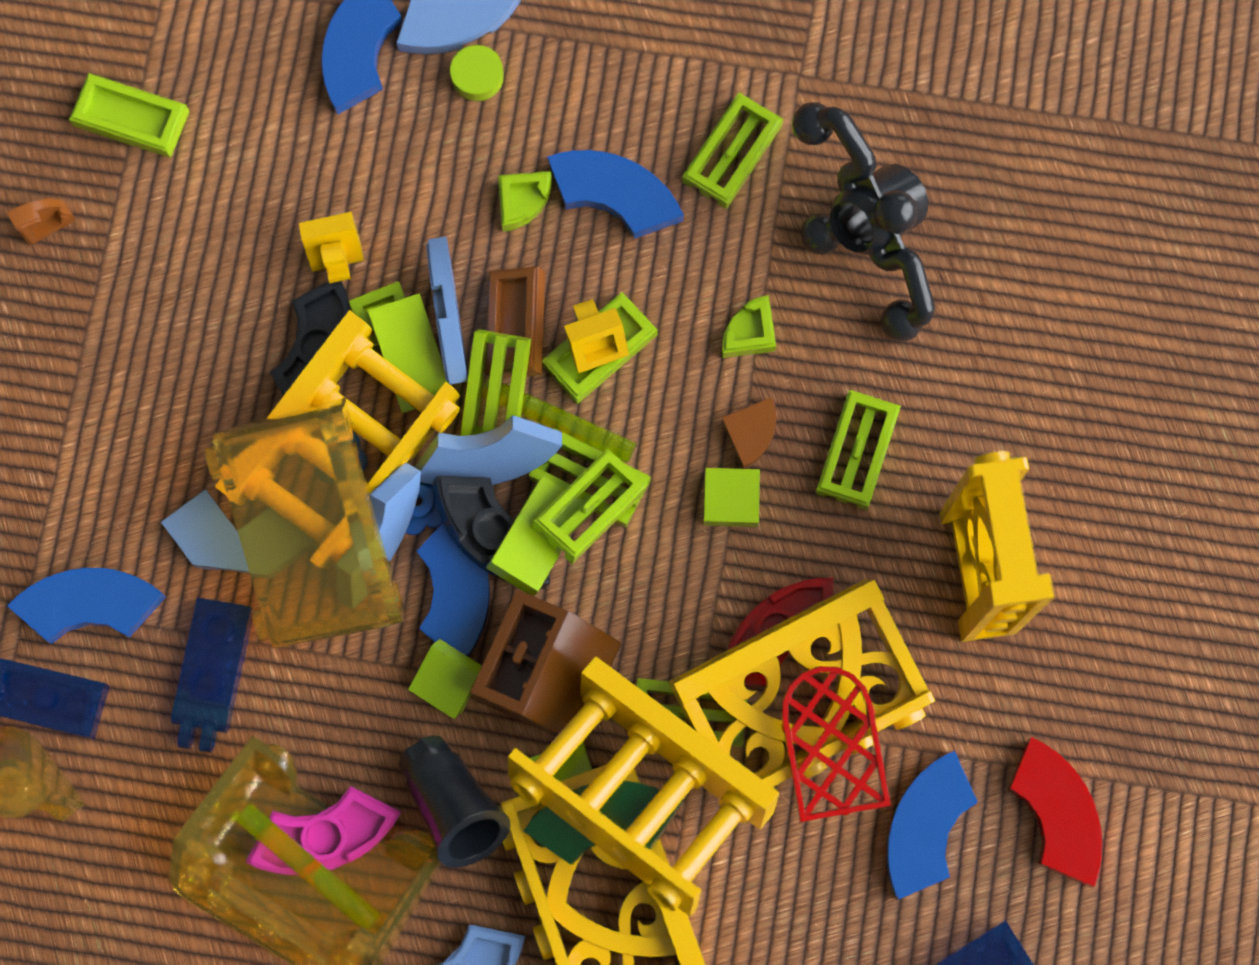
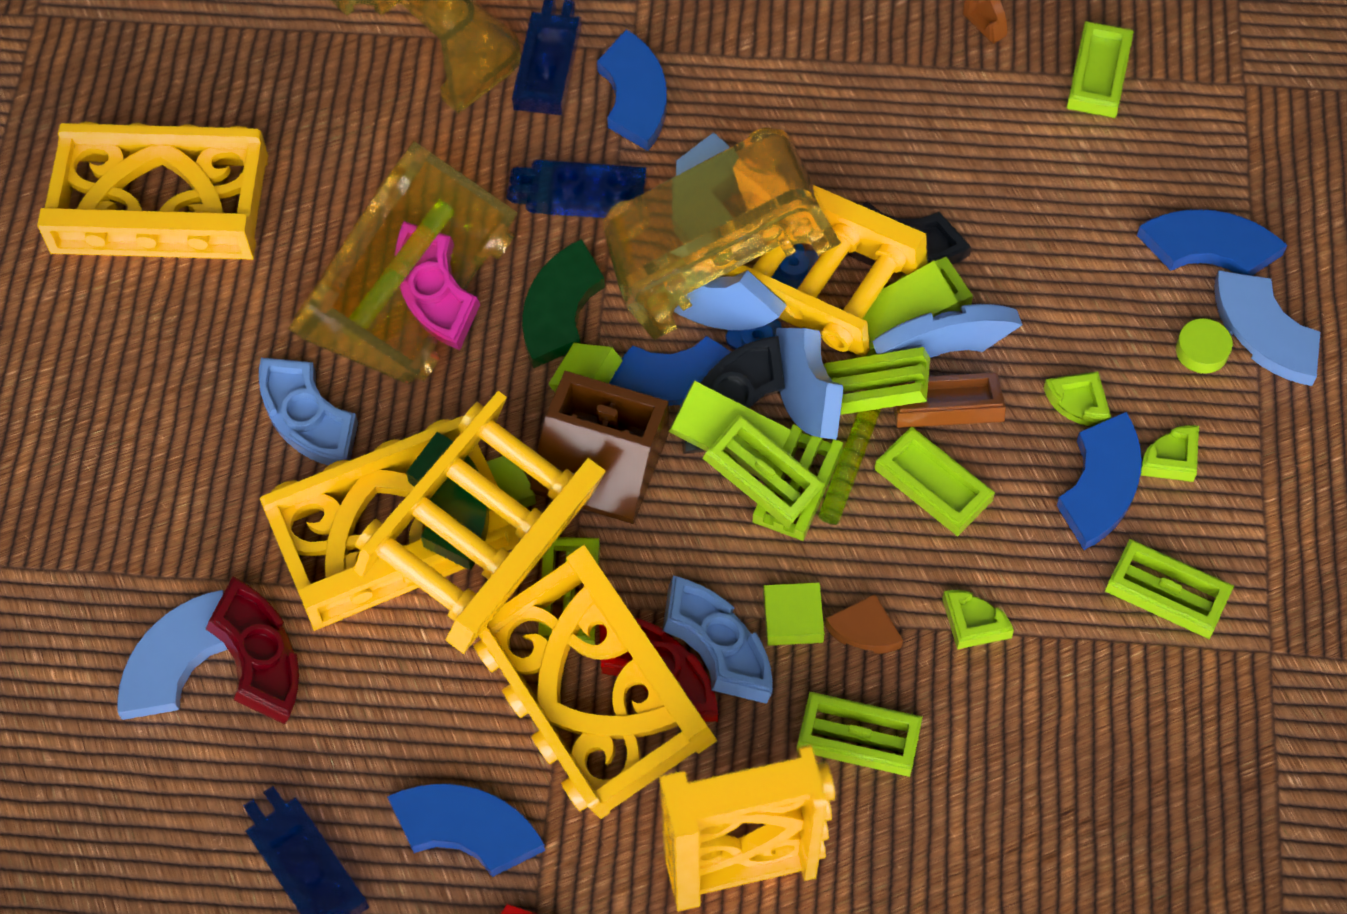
camera: 85 degrees right, 15 degrees down
(332, 245) = (998, 234): yellow tile -> none
(354, 707) = (556, 300): none -> dark green tile
(453, 804) = (457, 377): black plant -> none
(592, 121) = (1173, 455): none -> lime tile
(595, 336) = (936, 458): yellow tile -> none
(755, 567) = (727, 647): none -> medium blue tile
(869, 722) = (560, 738): red window -> none
(870, 215) = (1113, 708): black wheel -> none

